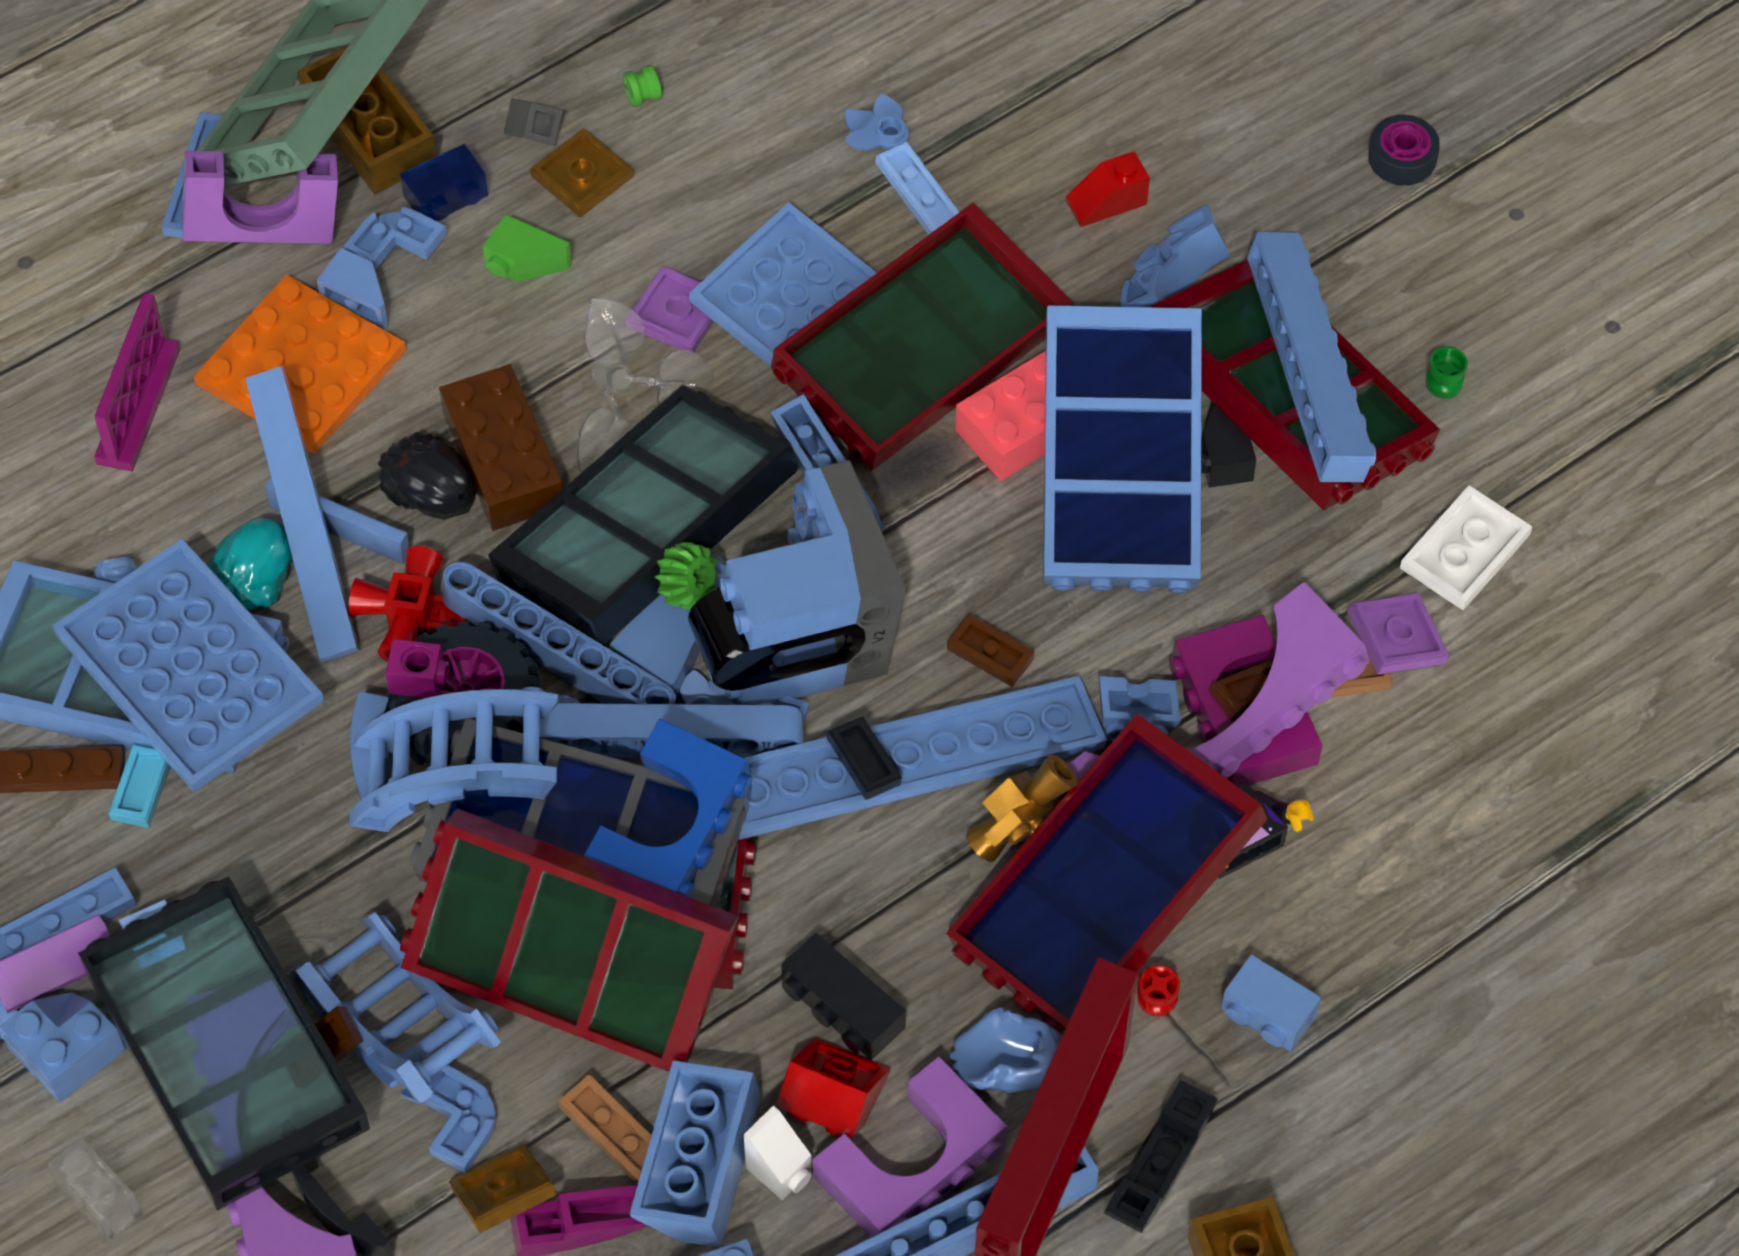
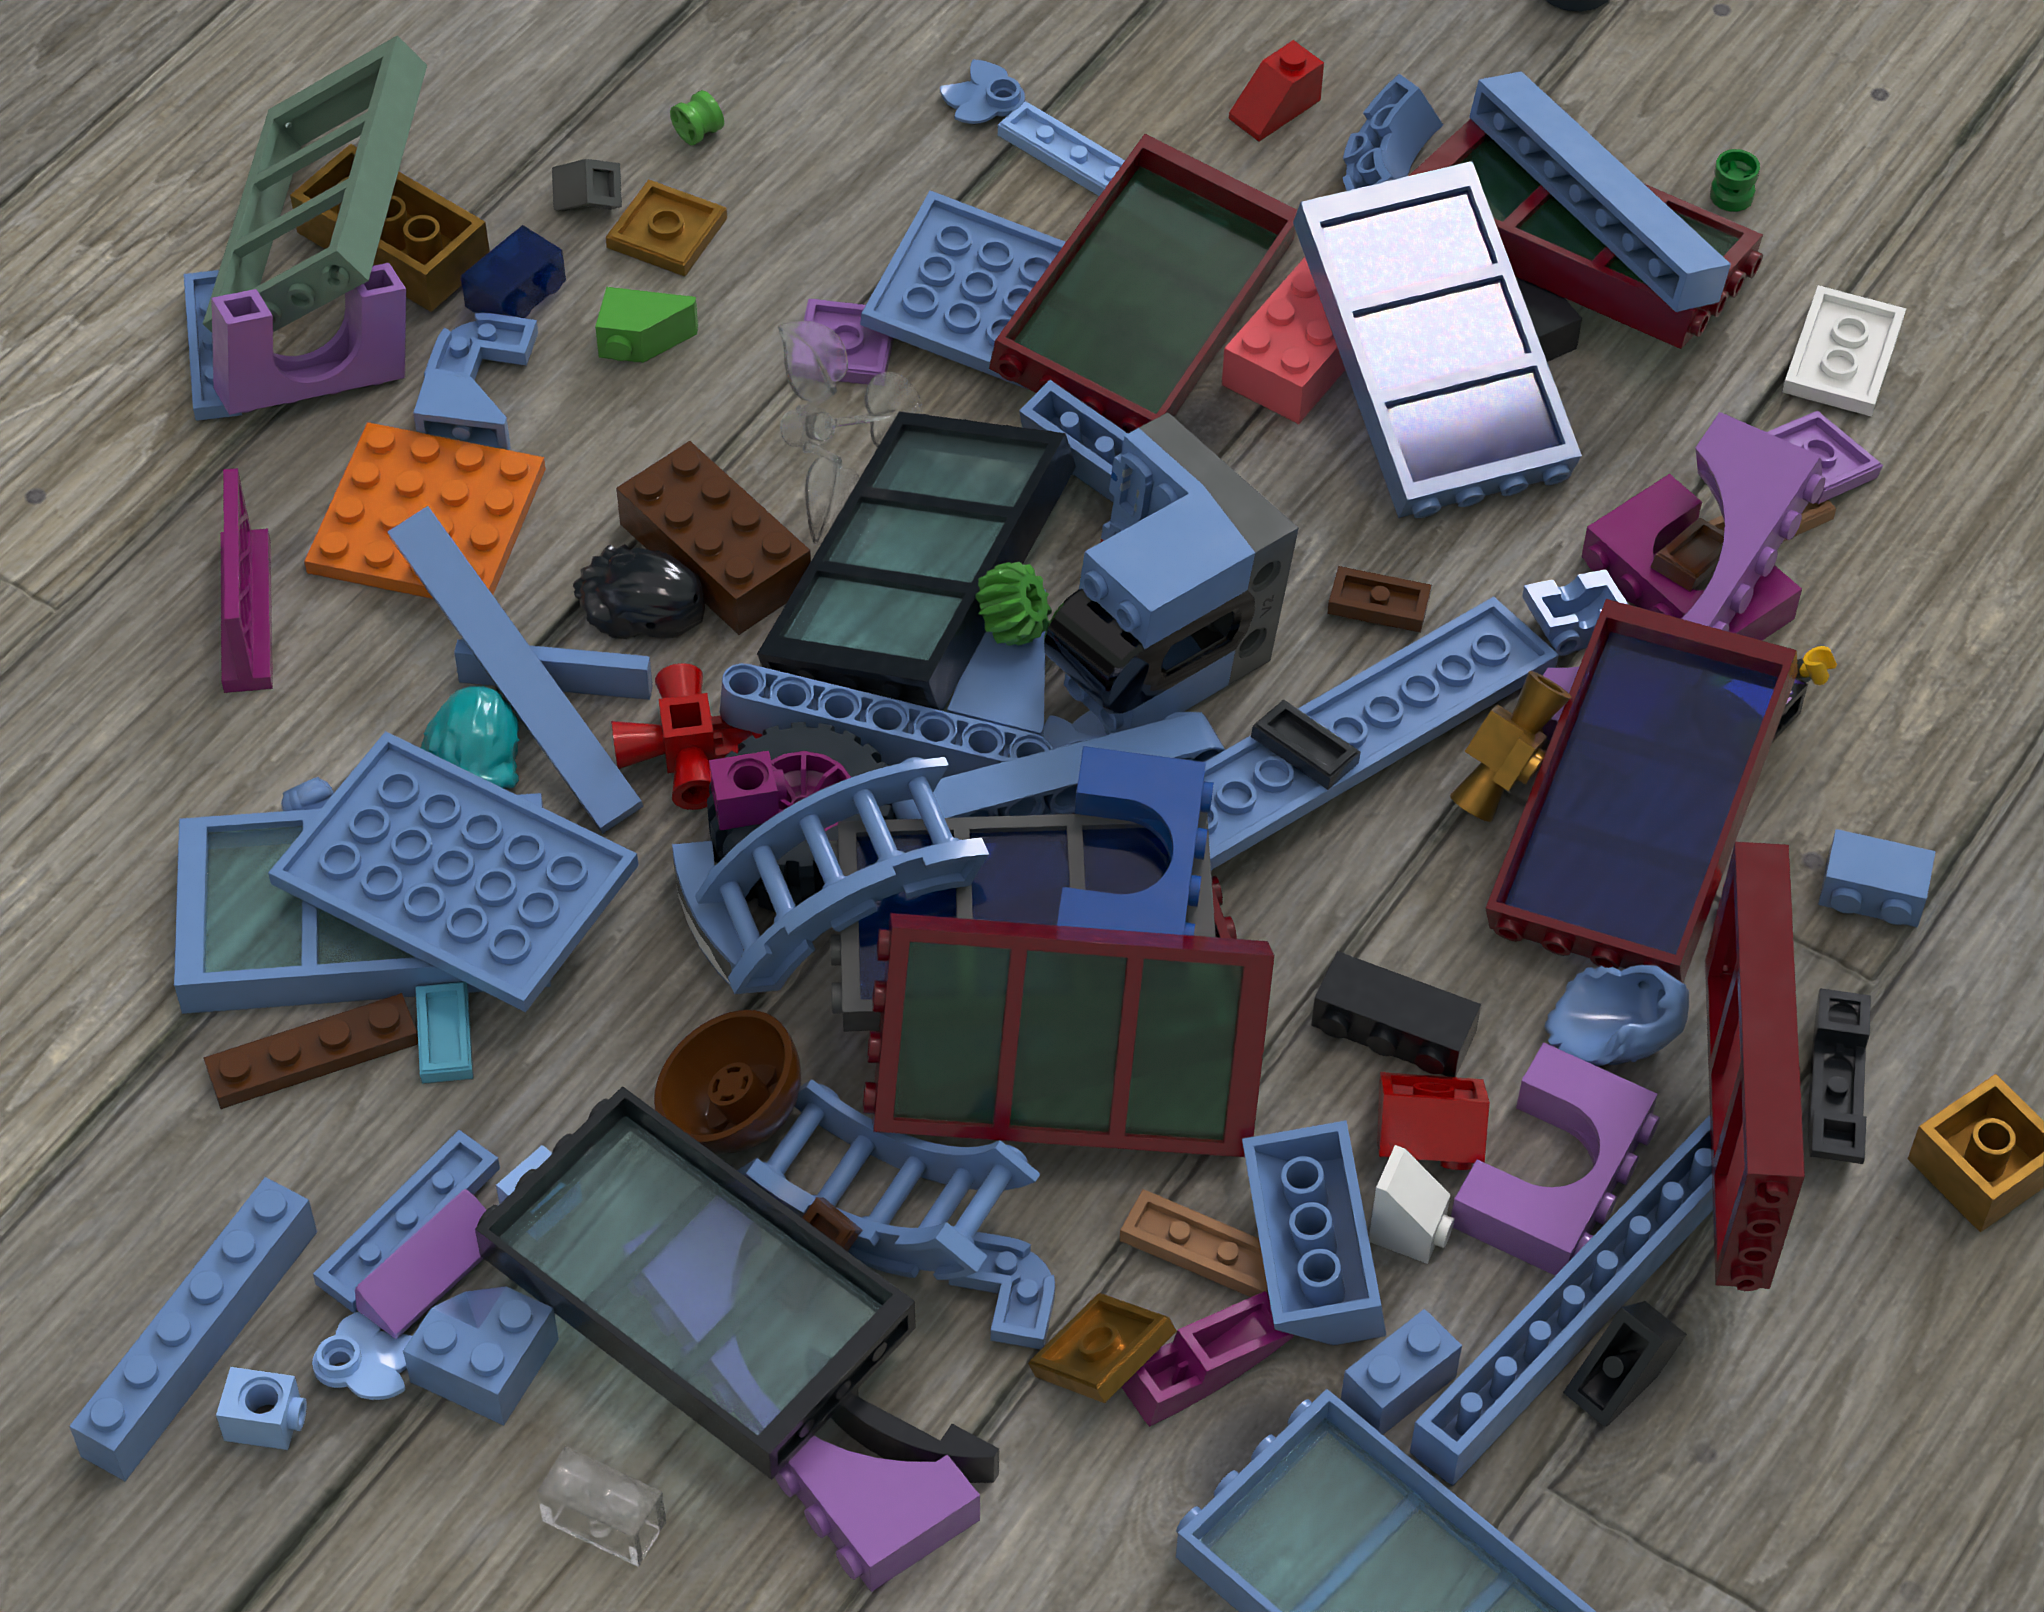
camera: 20 degrees left, 5 degrees down
(316, 896) = (731, 1081): none -> reddish brown piece

